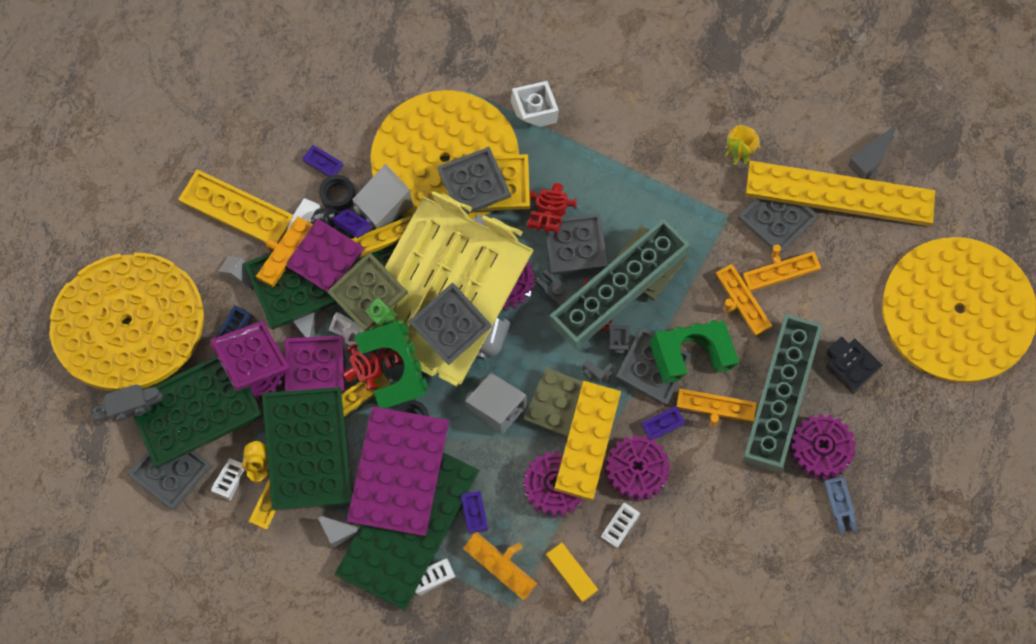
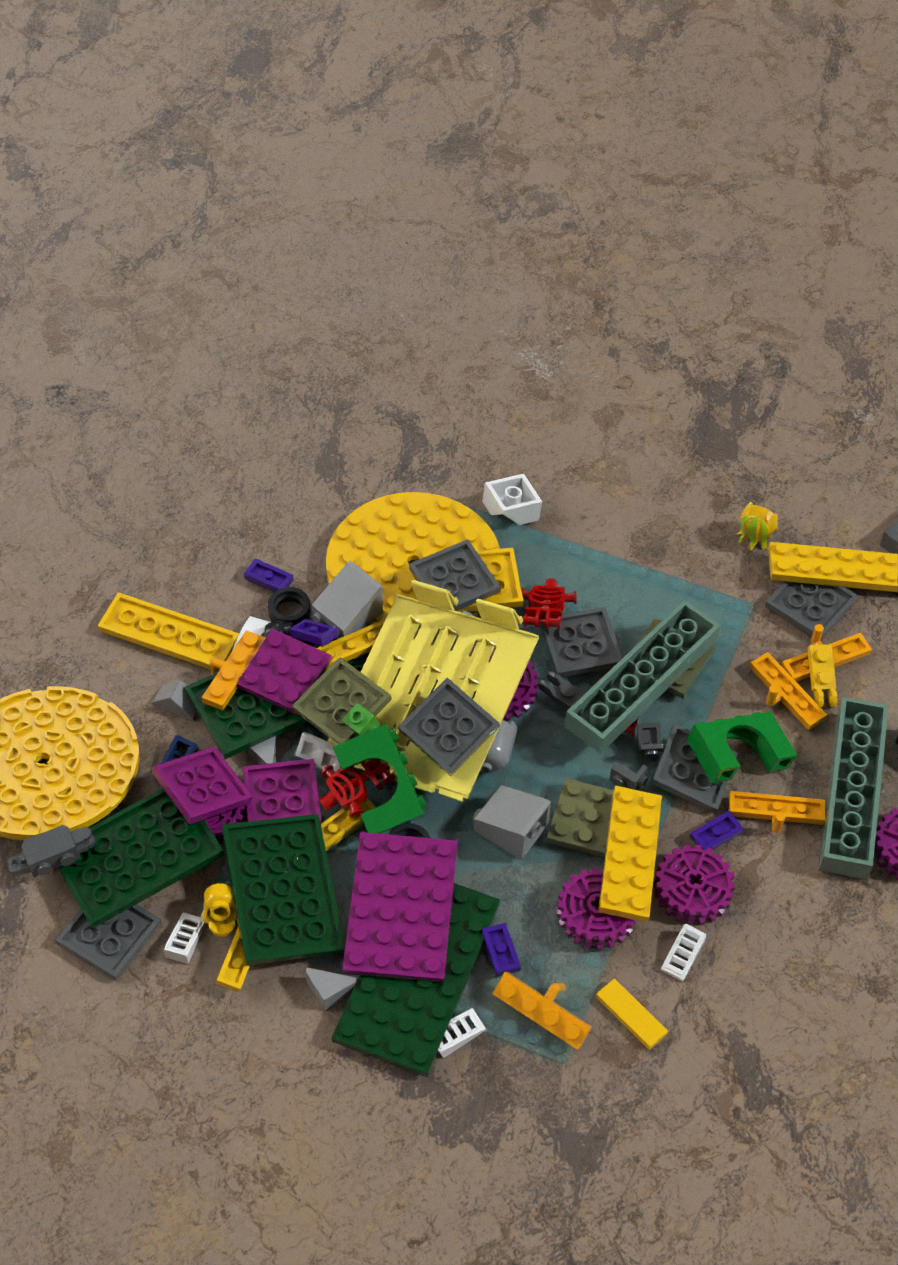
camera: 10 degrees left, 15 degrees down
(774, 288) = (822, 674): none -> yellow hinge

